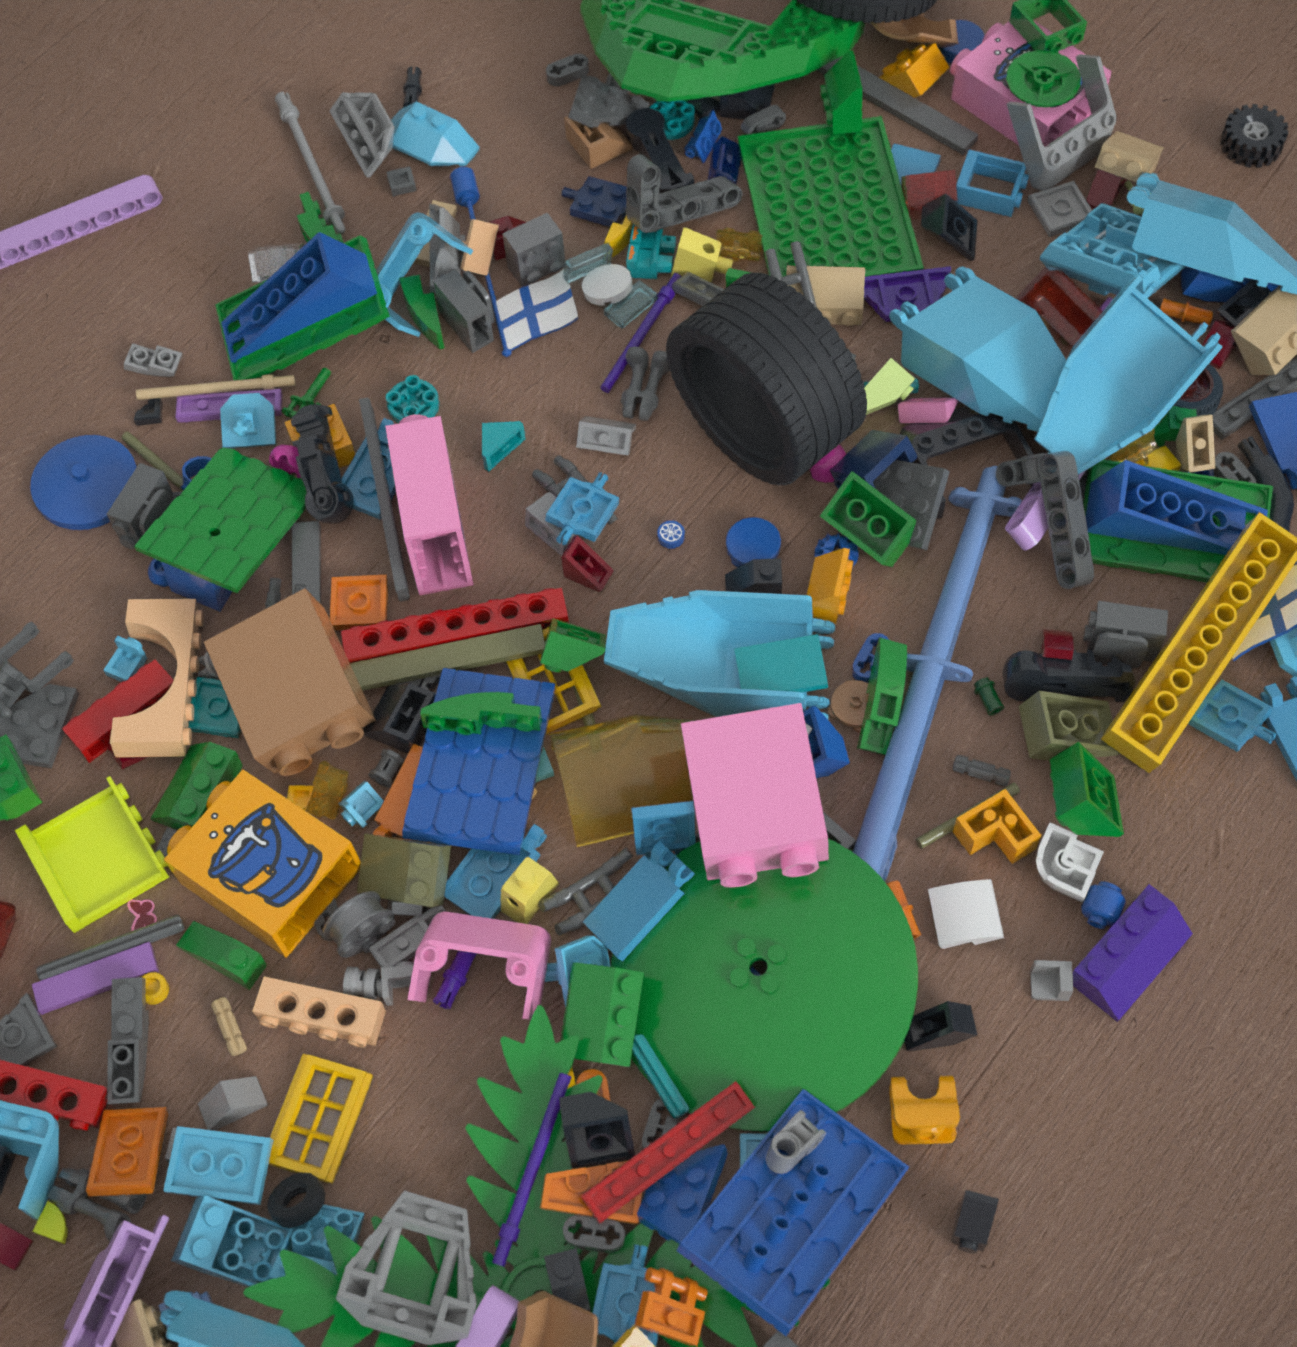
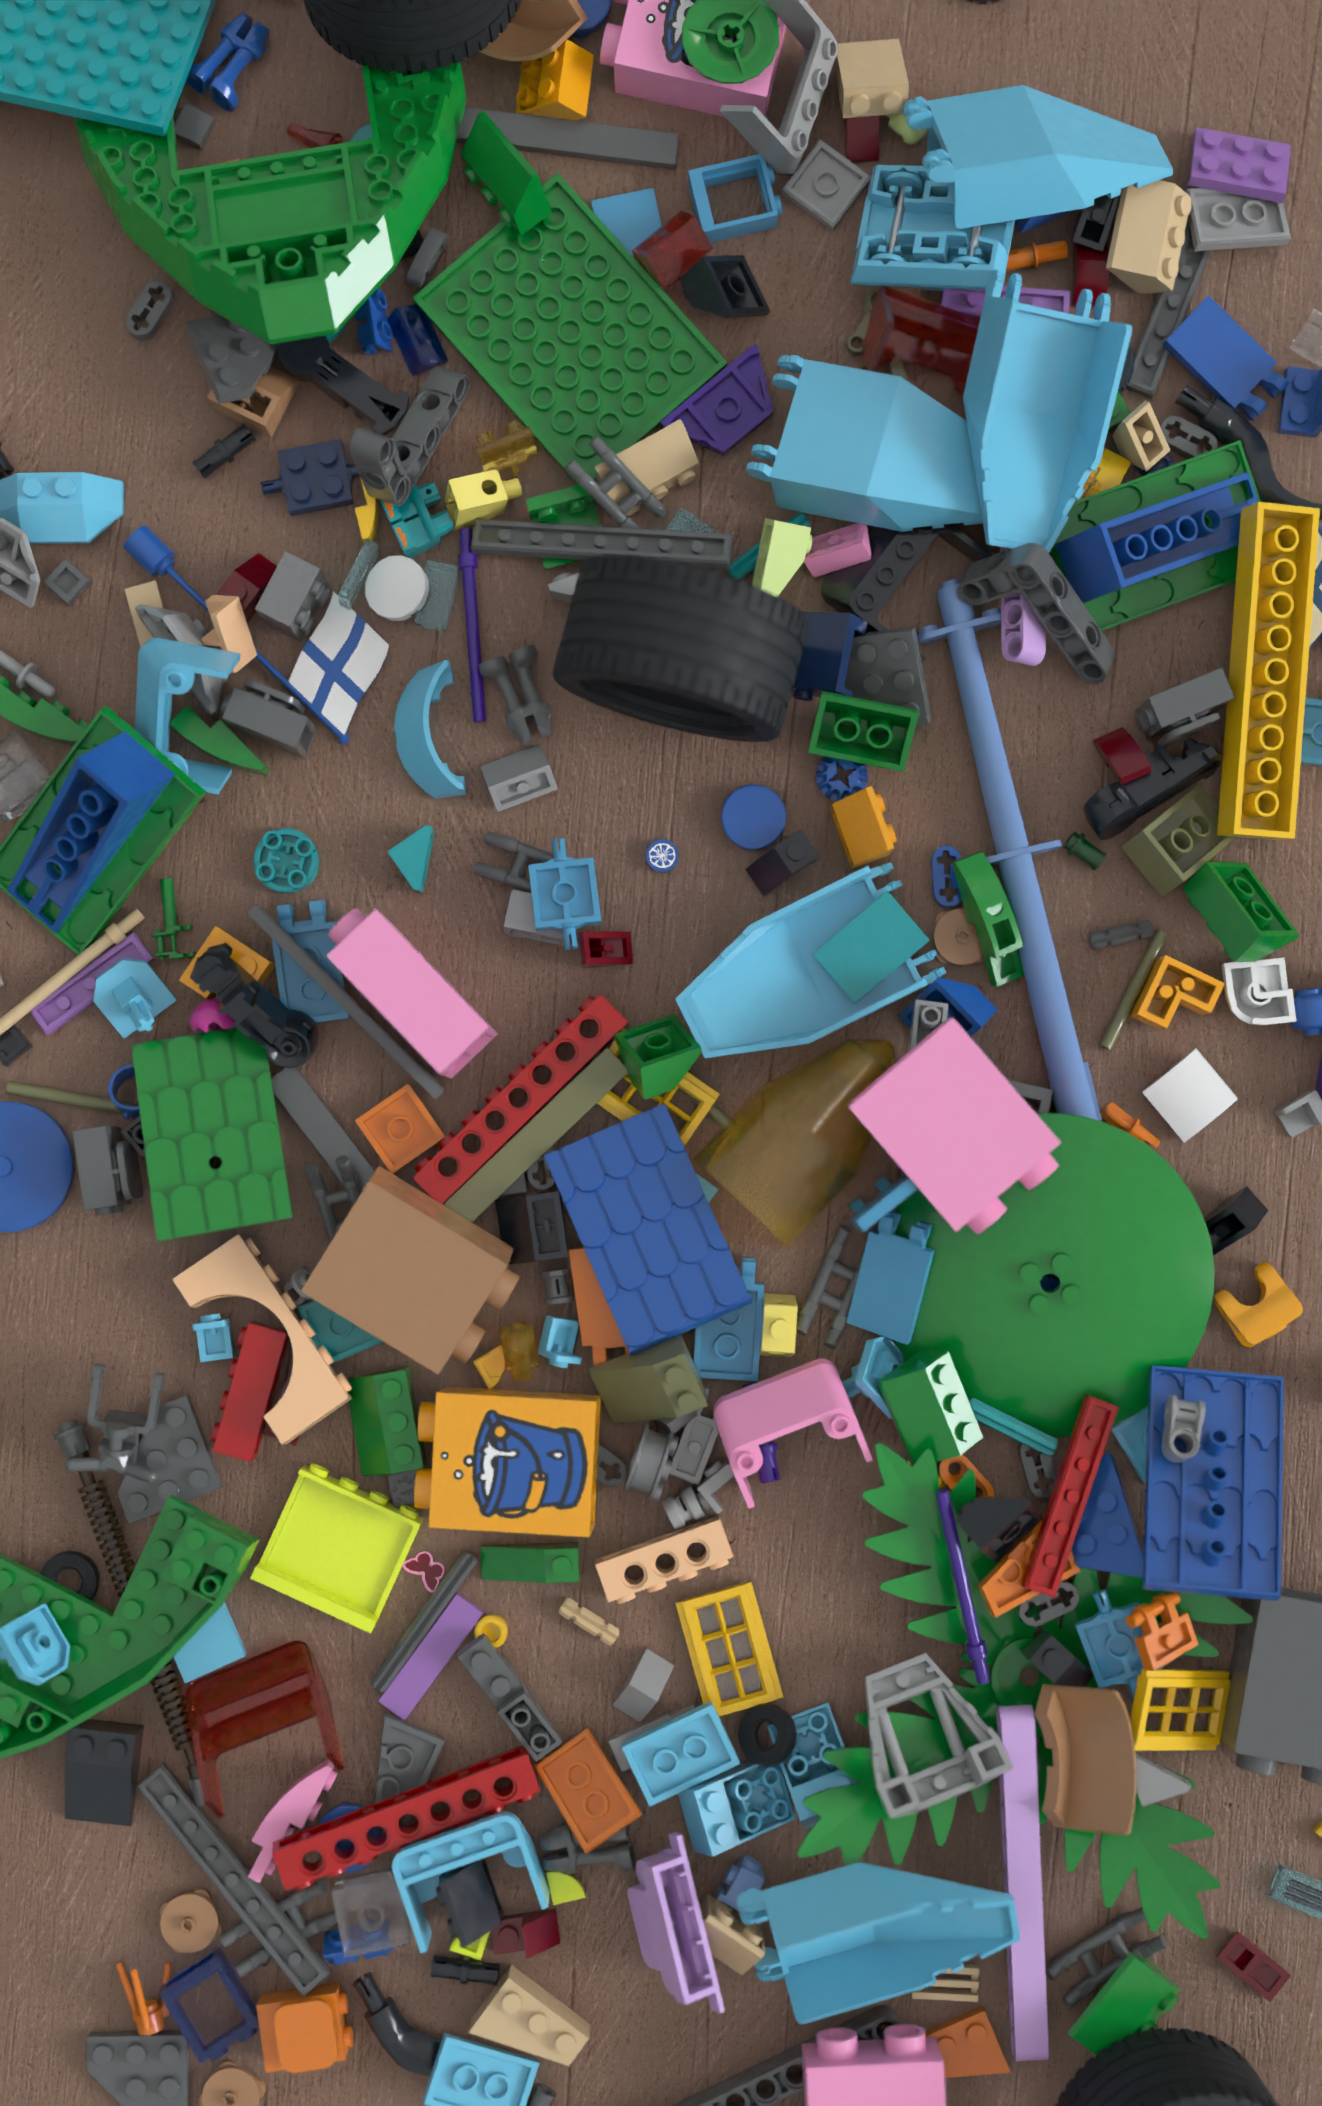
camera: 40 degrees left, 25 degrees up
(470, 711) = (612, 1196): green slope -> none
(555, 159) = (224, 451): none -> black pin
(556, 369) = (414, 735): none -> medium azure windscreen

